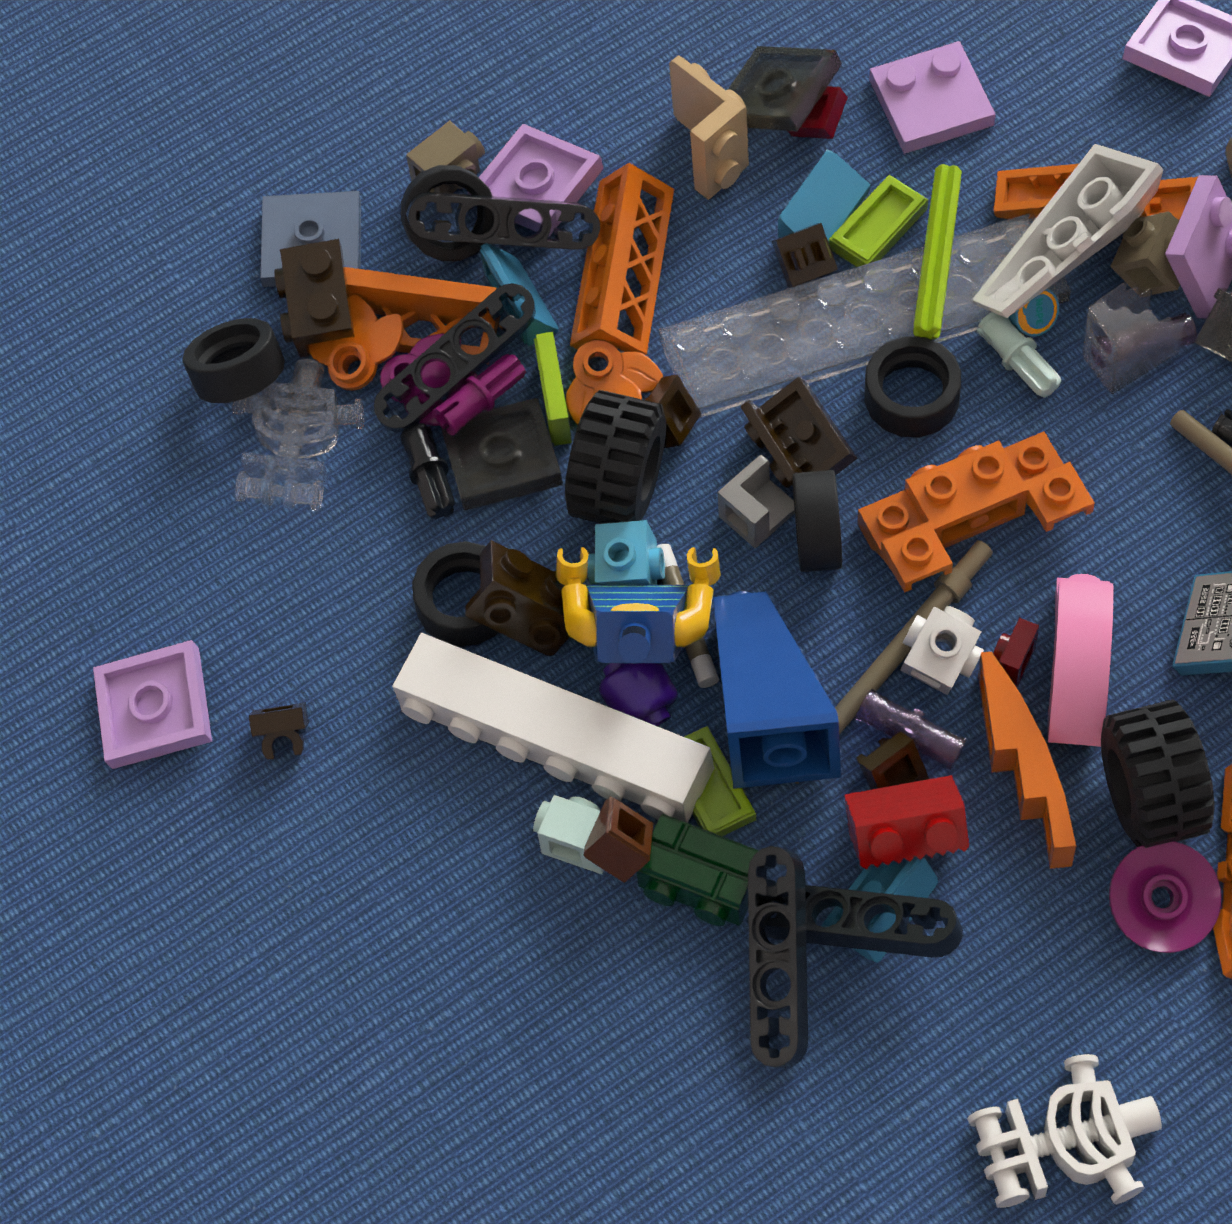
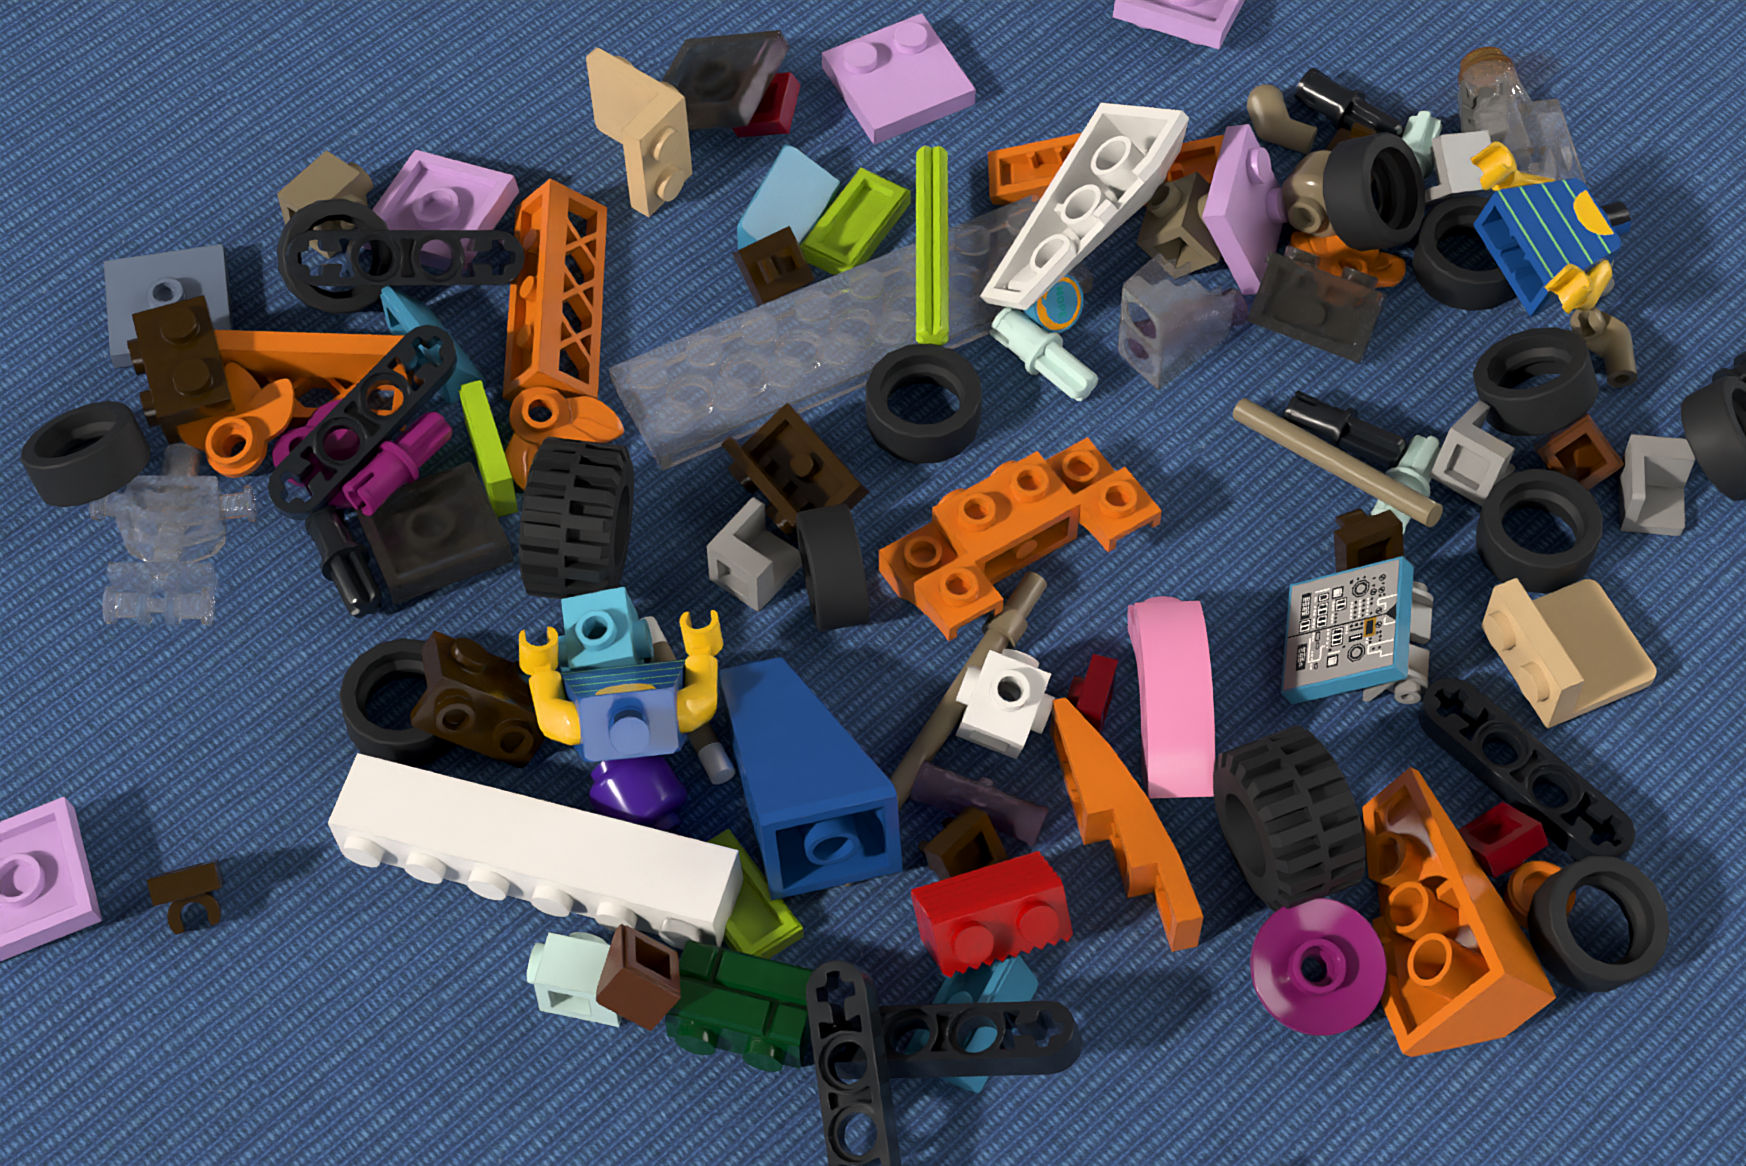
camera: 15 degrees left, 5 degrees down
(678, 409) = (646, 454): dark brown tile -> none

